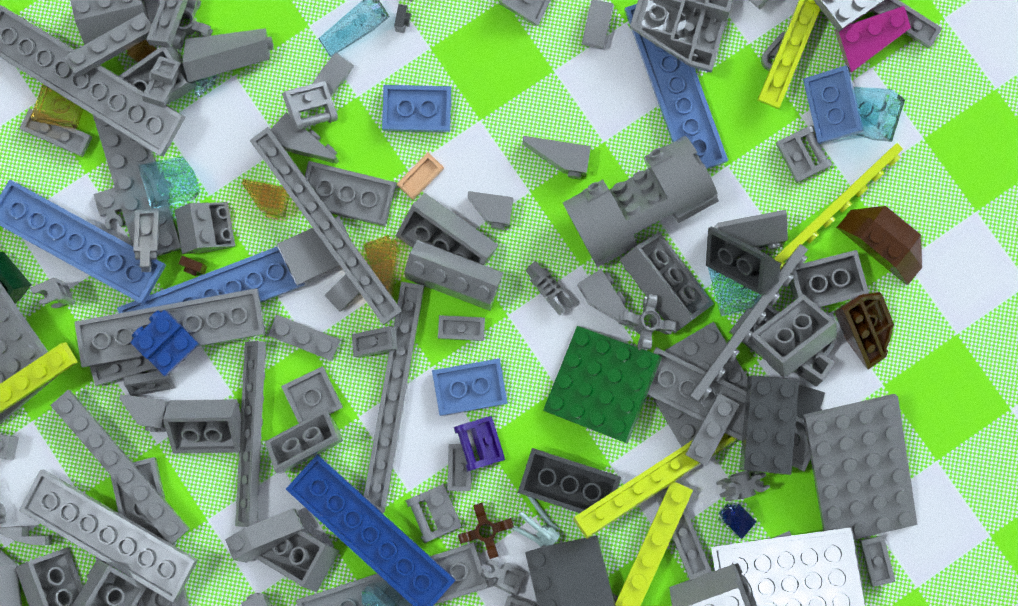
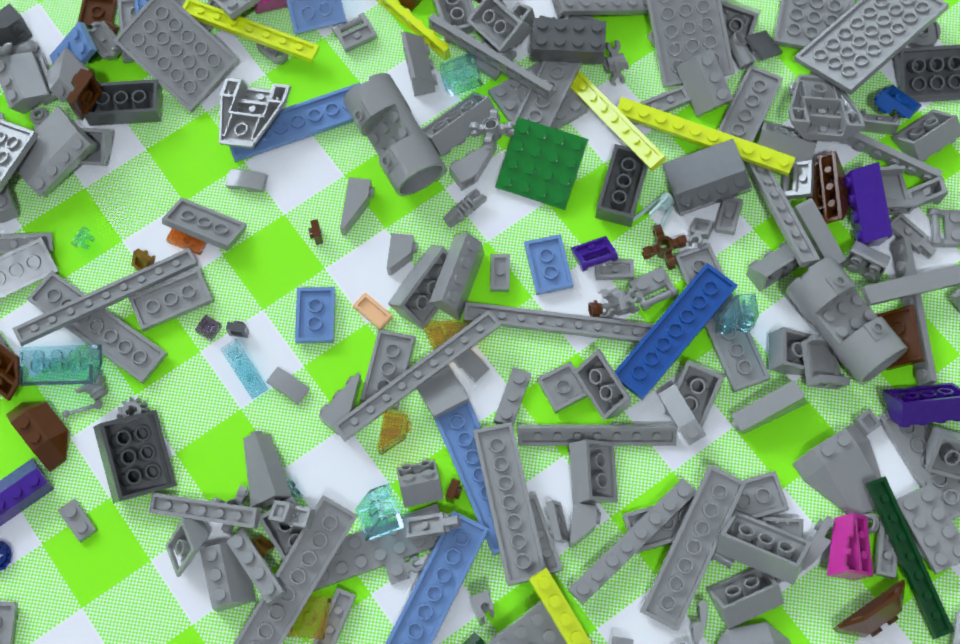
camera: 90 degrees left, 15 degrees down
(164, 342) = (522, 502): blue plate -> none
(306, 99) = (307, 396): light grey plate -> none
(374, 341) = (514, 337): light grey plate -> none
(409, 441) = (595, 309): none -> reddish brown plate
(409, 471) = (621, 303): none -> light grey pin
(523, 107) = (315, 232): none -> reddish brown plate
(712, 429) = (574, 81): light grey plate -> none
(736, 519) = (641, 68): clear blue slope -> none
(741, 262) = (443, 56): dark grey slope -> none

